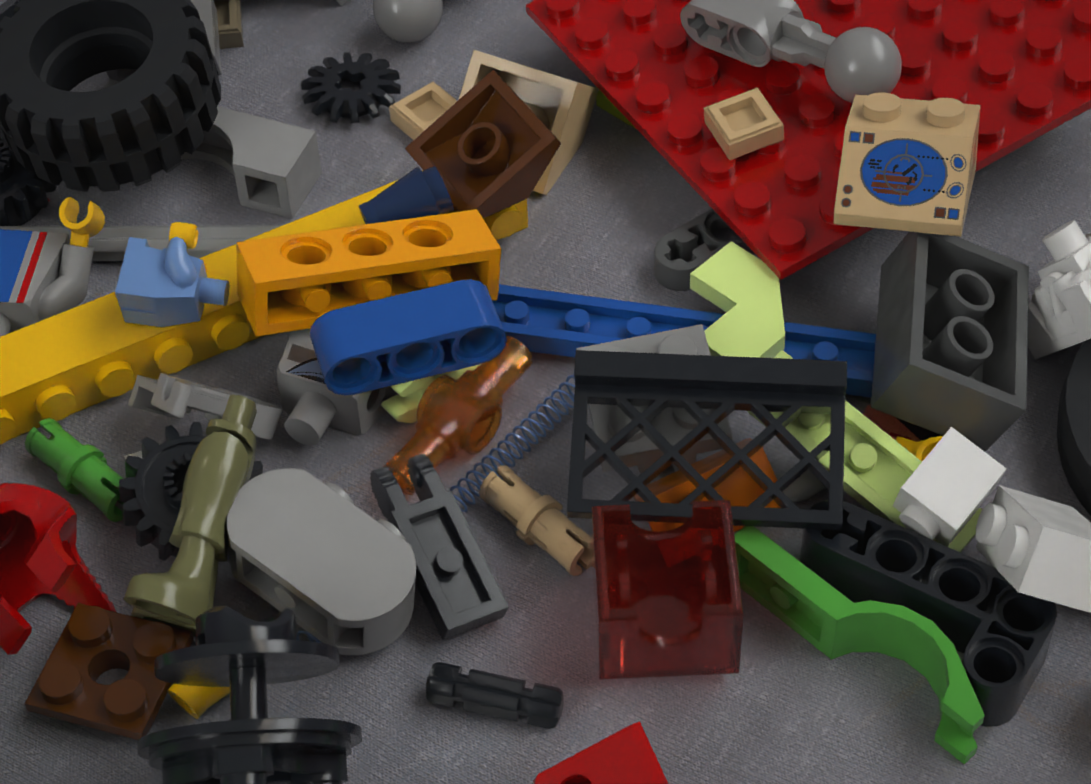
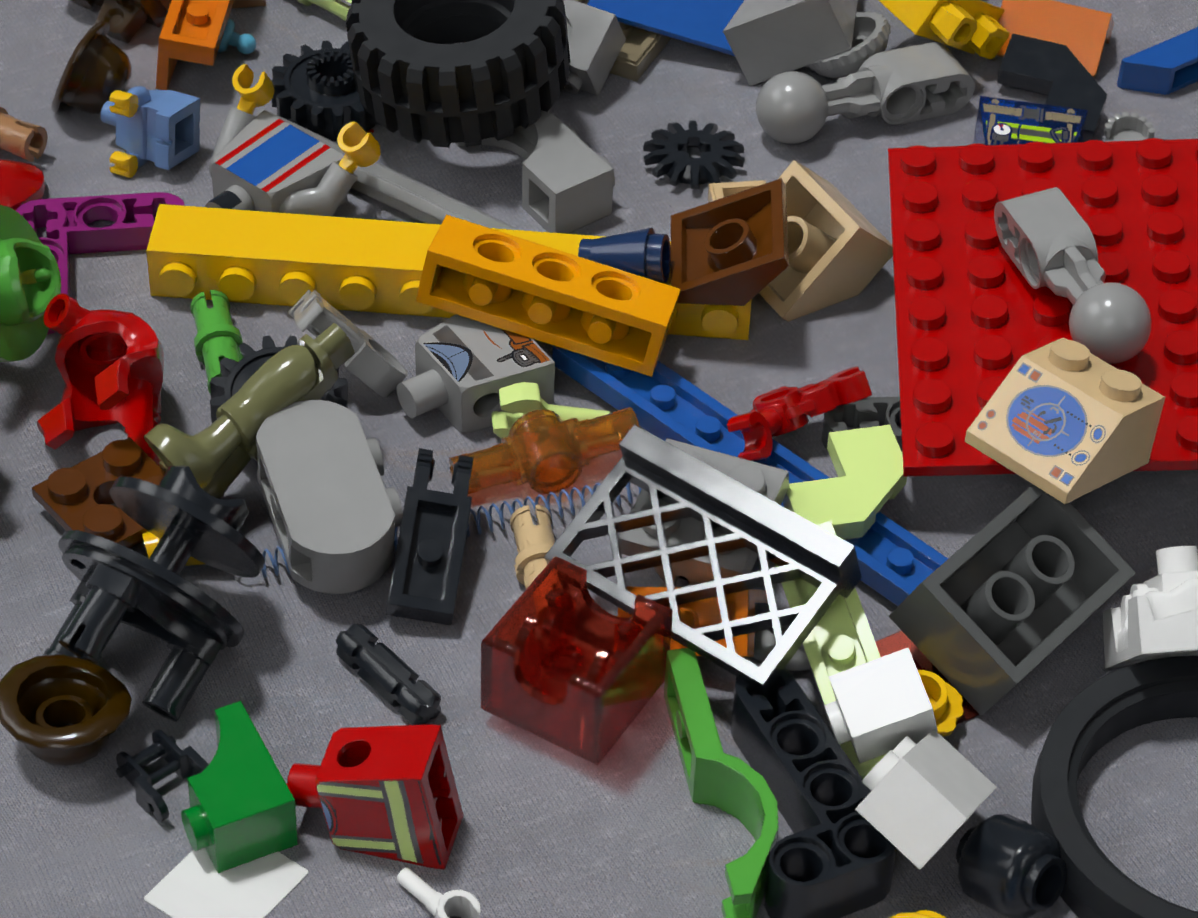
camera: 30 degrees right, 5 degrees down
(167, 283) = (372, 225): medium blue piece -> none
(407, 337) = (533, 359): blue beam -> none
(627, 272) = (788, 408): none -> red piece
(743, 123) = (974, 328): tan tile -> none

